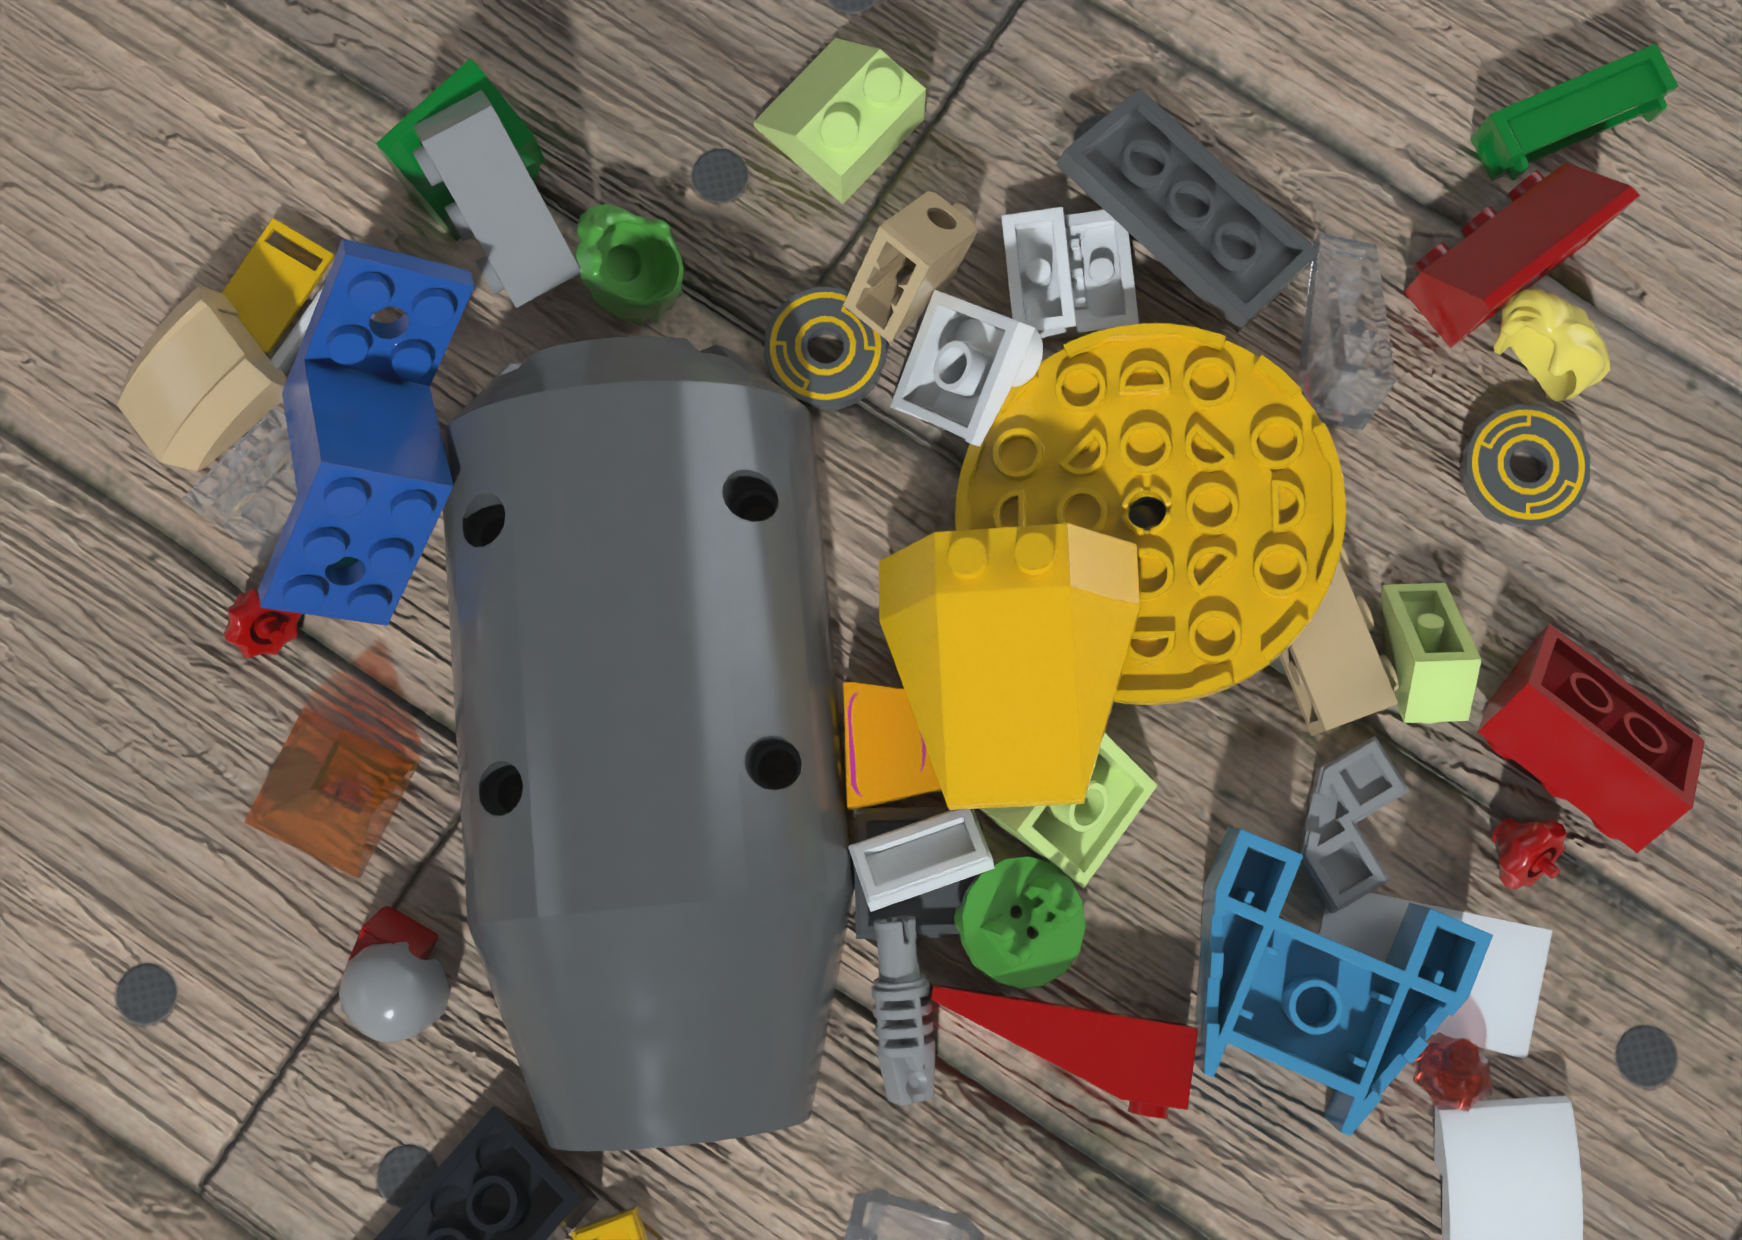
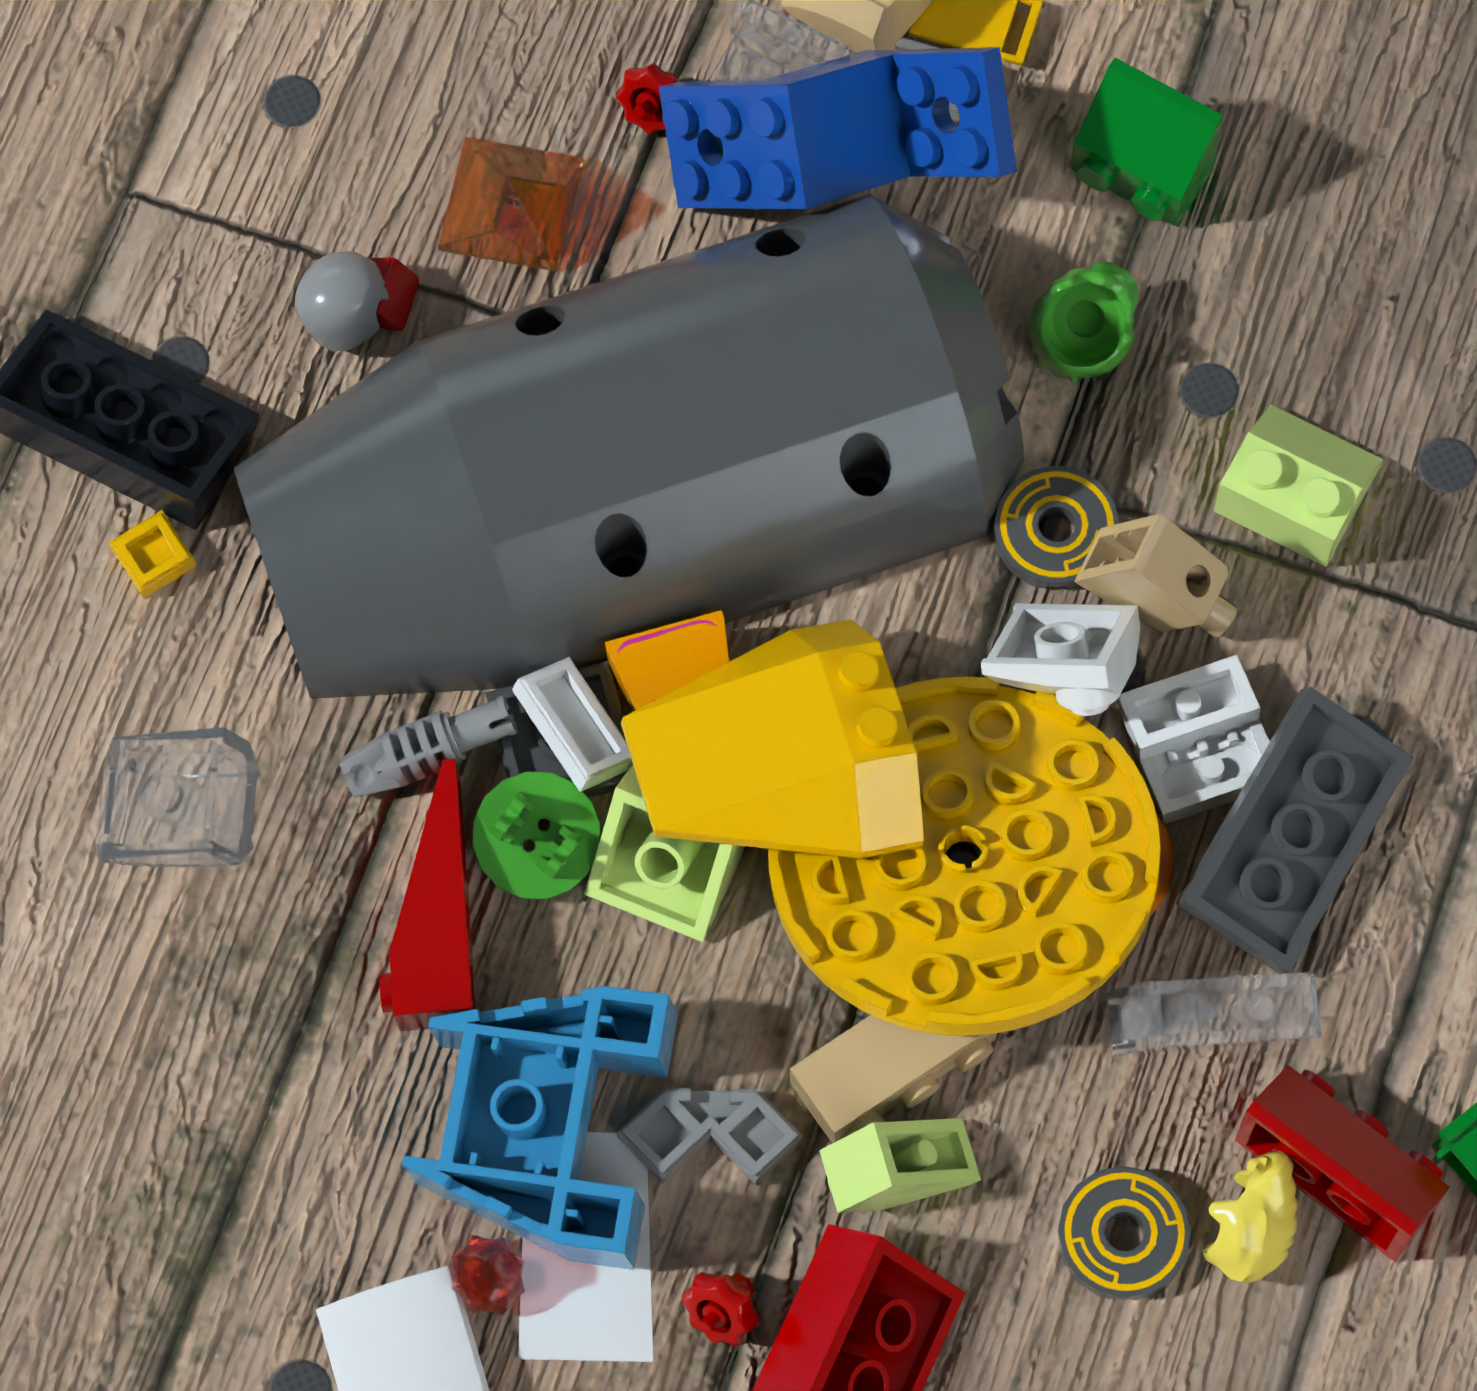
camera: 80 degrees right, 10 degrees down
(494, 199) = (1100, 179): light grey brick -> none

